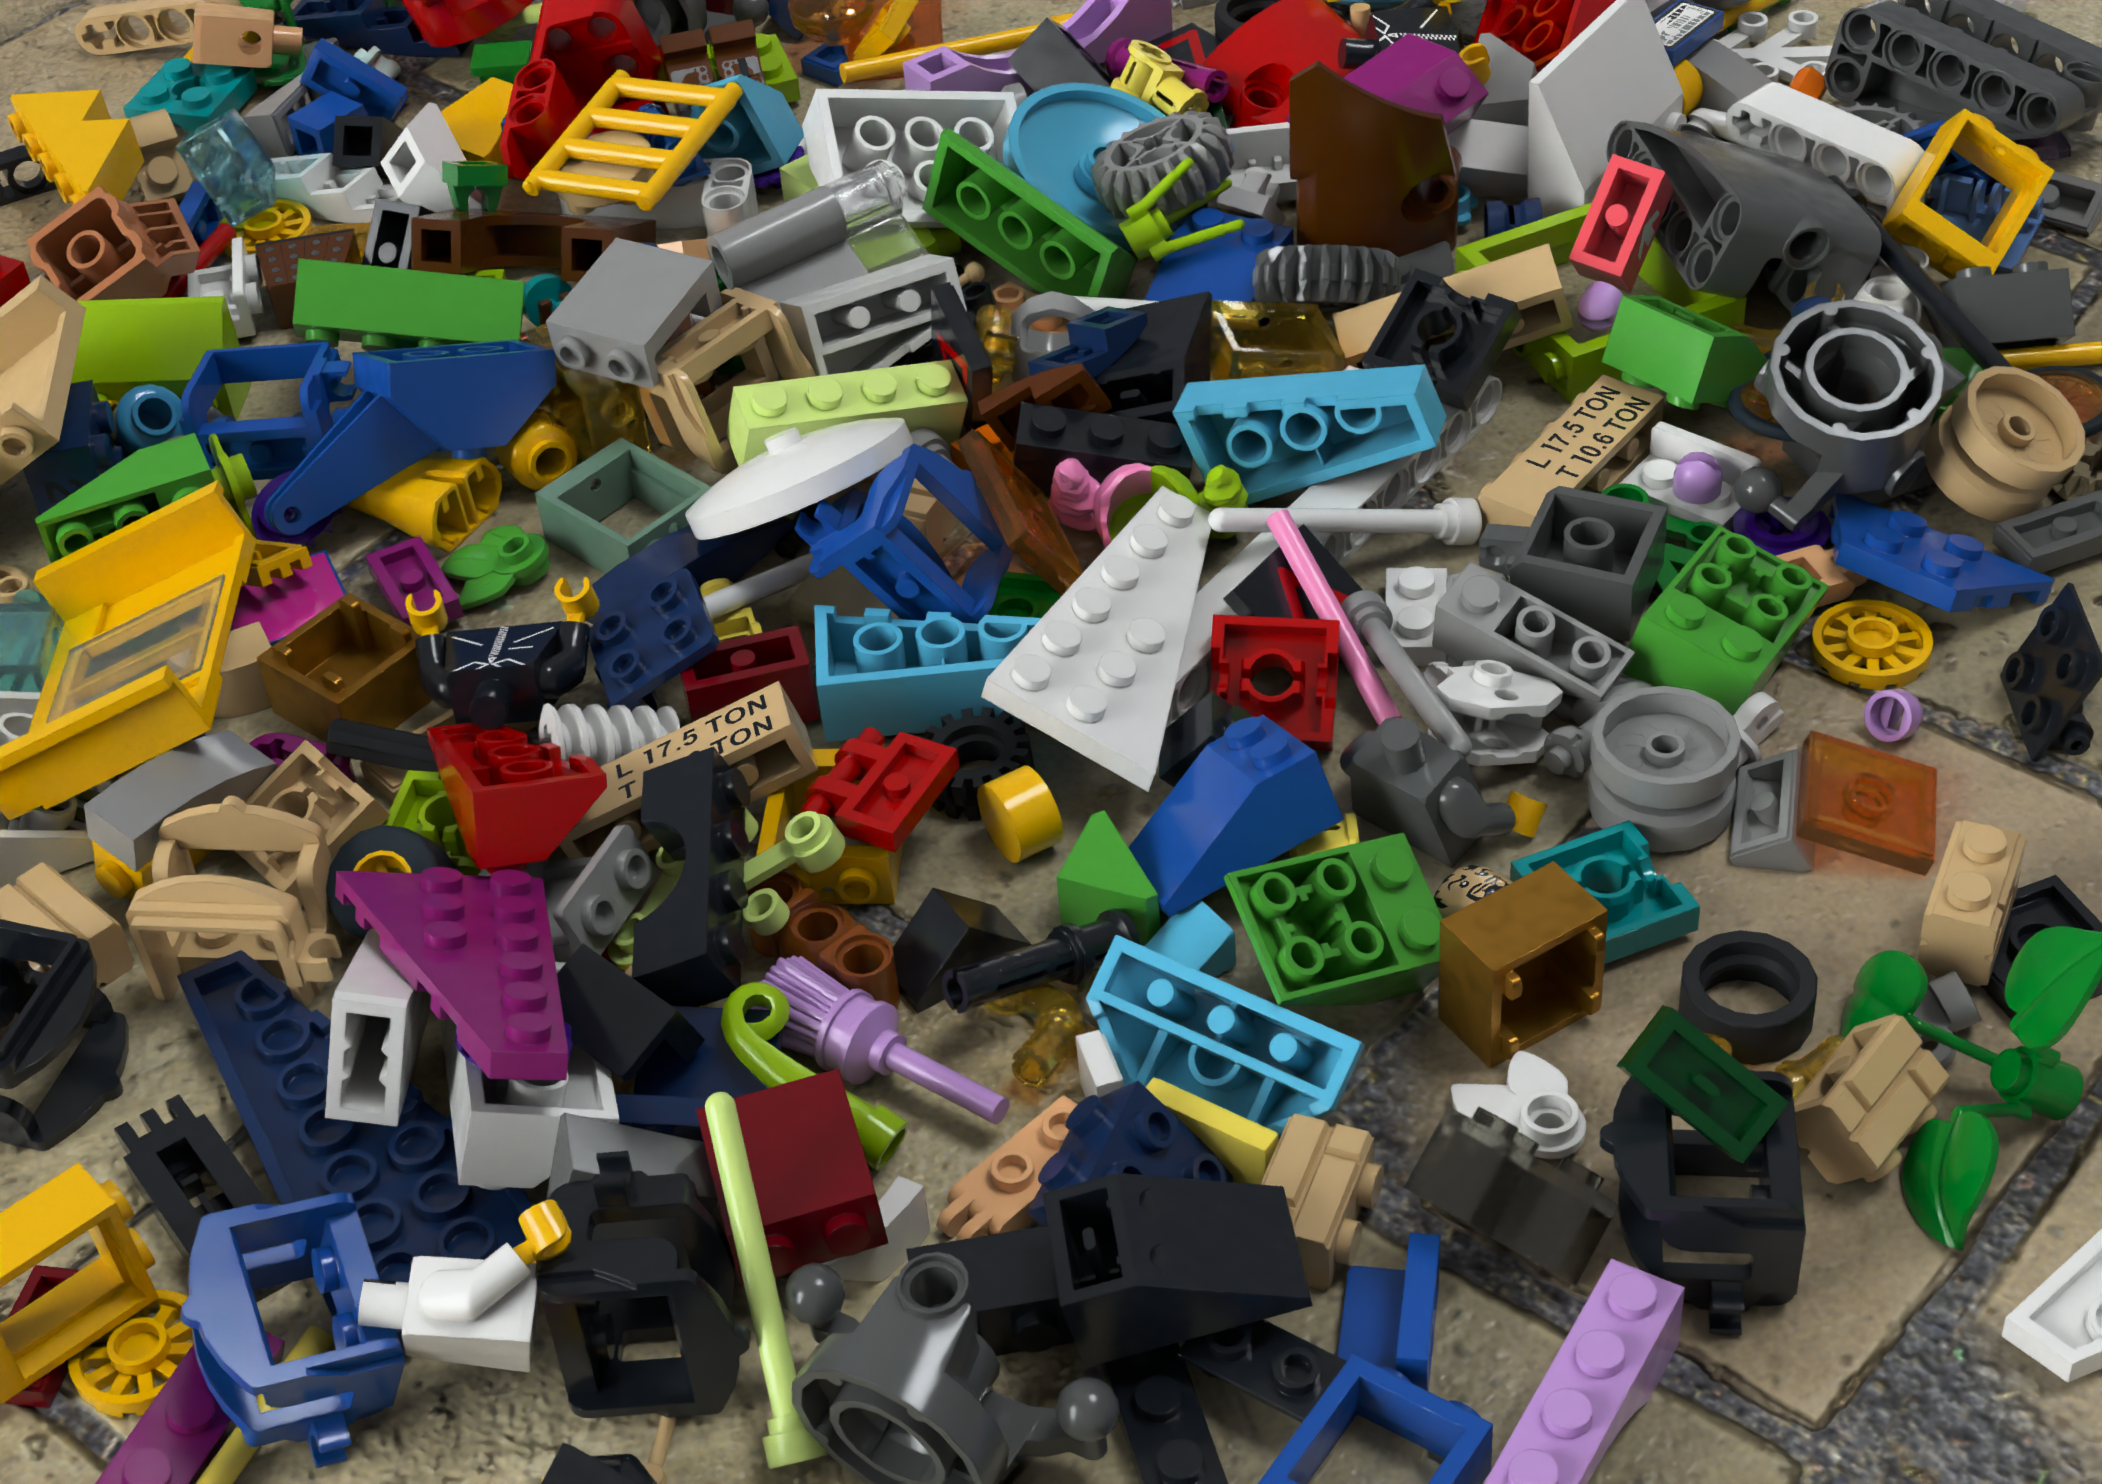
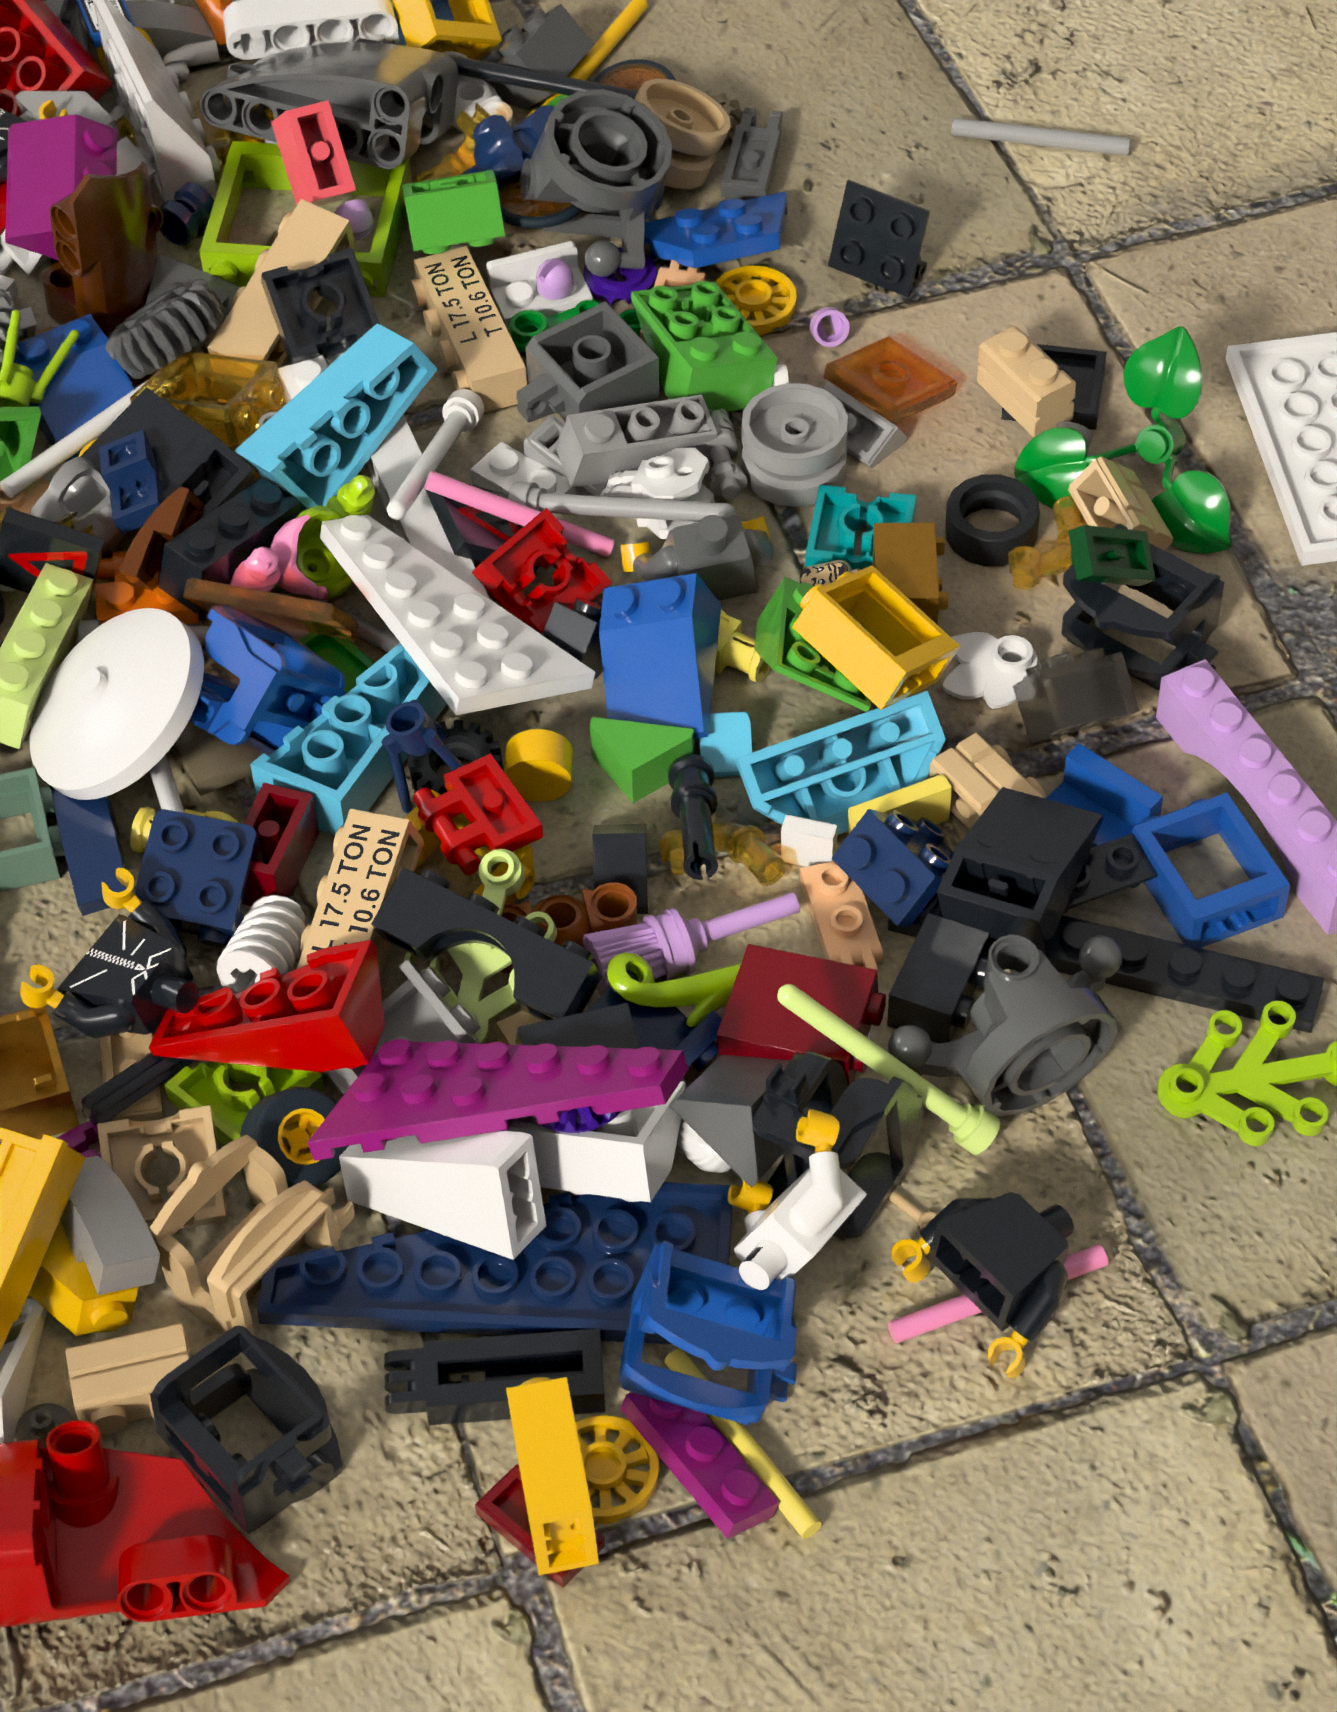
camera: 60 degrees left, 10 degrees up
(920, 672) = (414, 734): none -> dark blue plant
(1345, 997) = (916, 640): none -> yellow window

